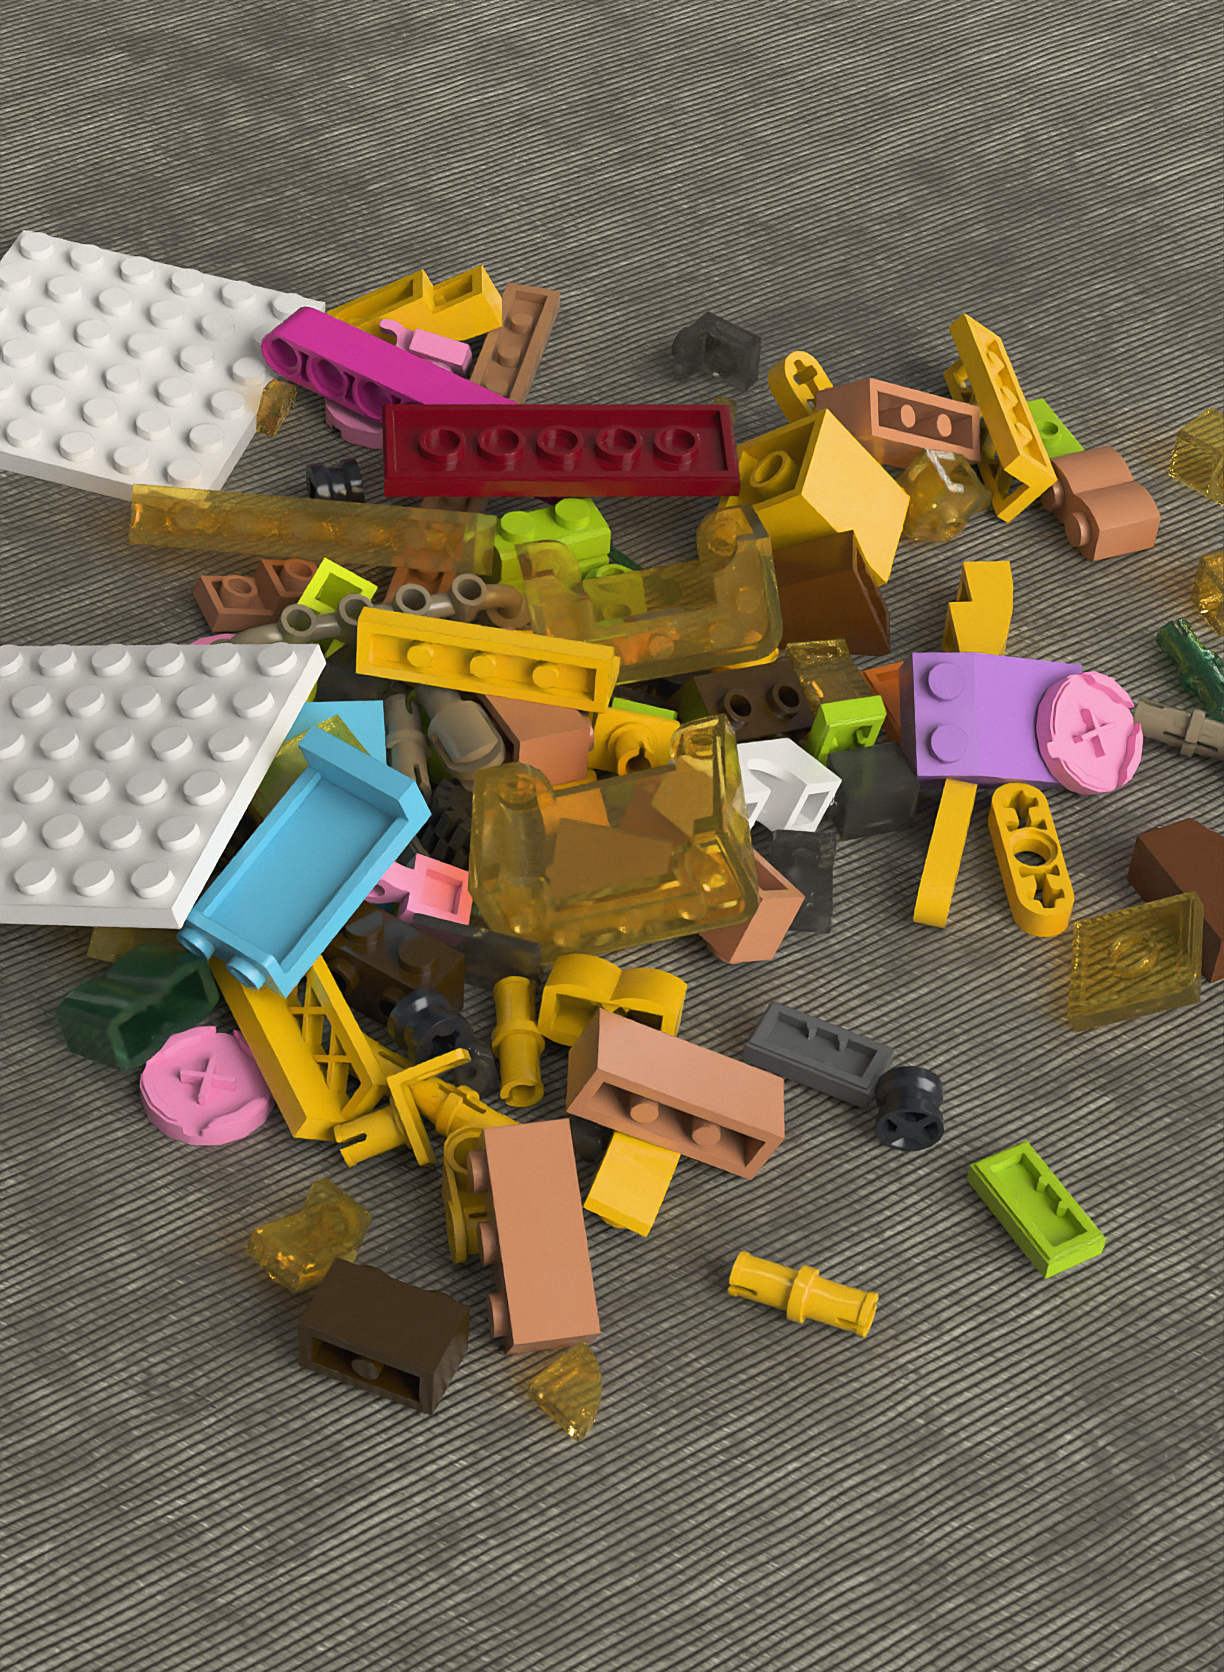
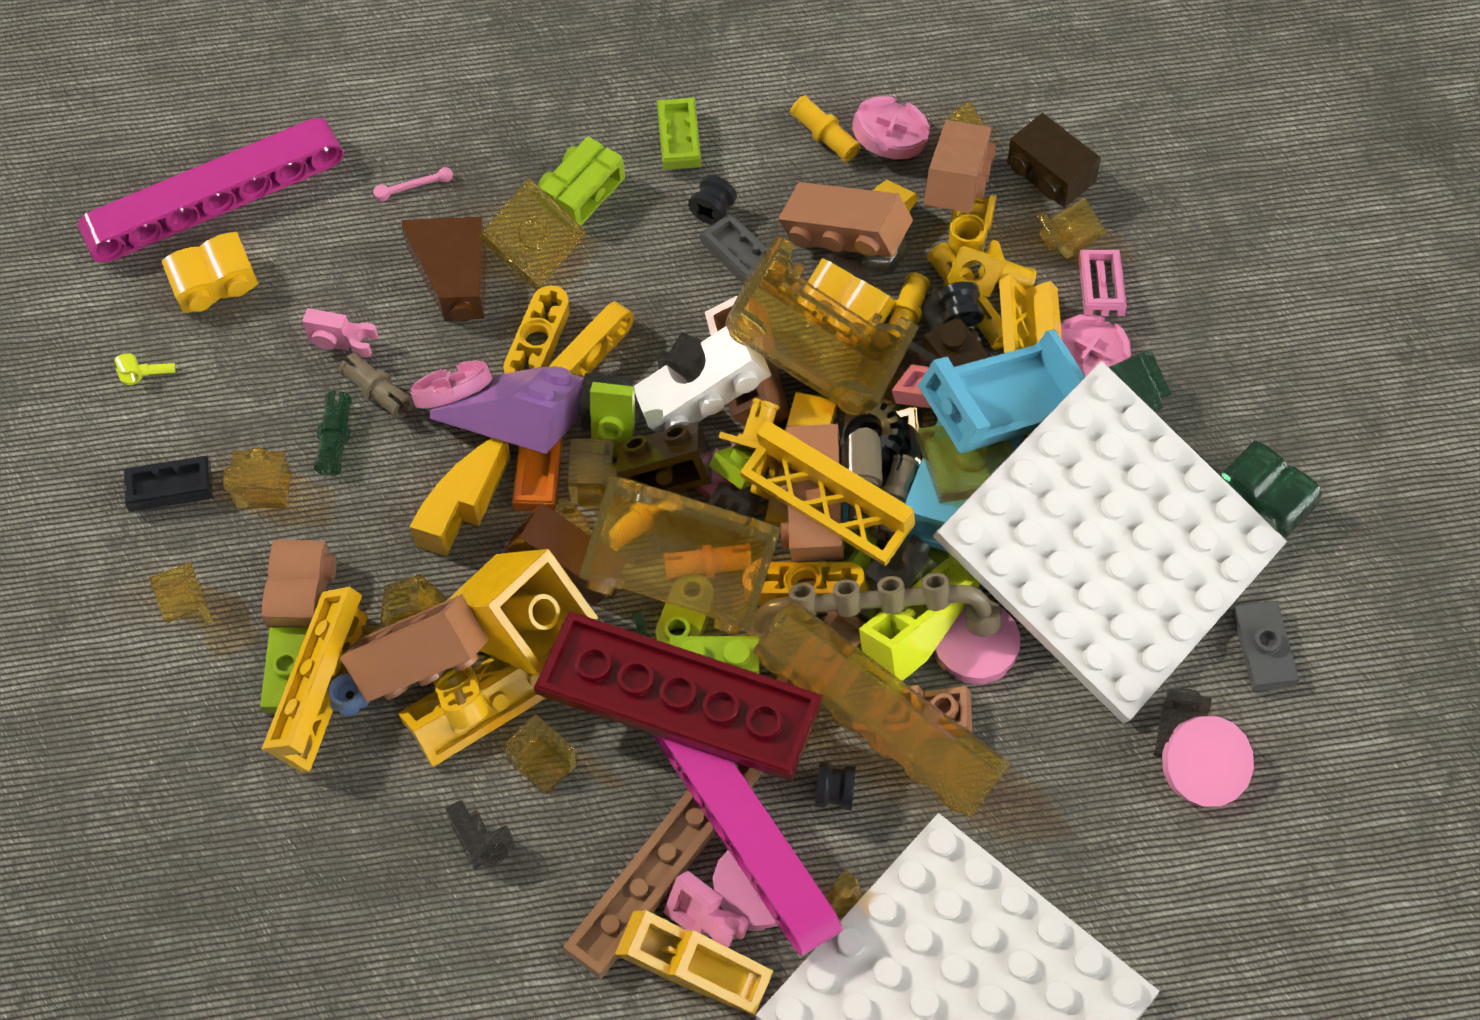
camera: 150 degrees left, 15 degrees up
(240, 1228) = (1103, 303): none -> bright pink tile
(693, 1327) = (890, 128): none -> bright pink tile
(1127, 1072) = (584, 179): none -> lime brick

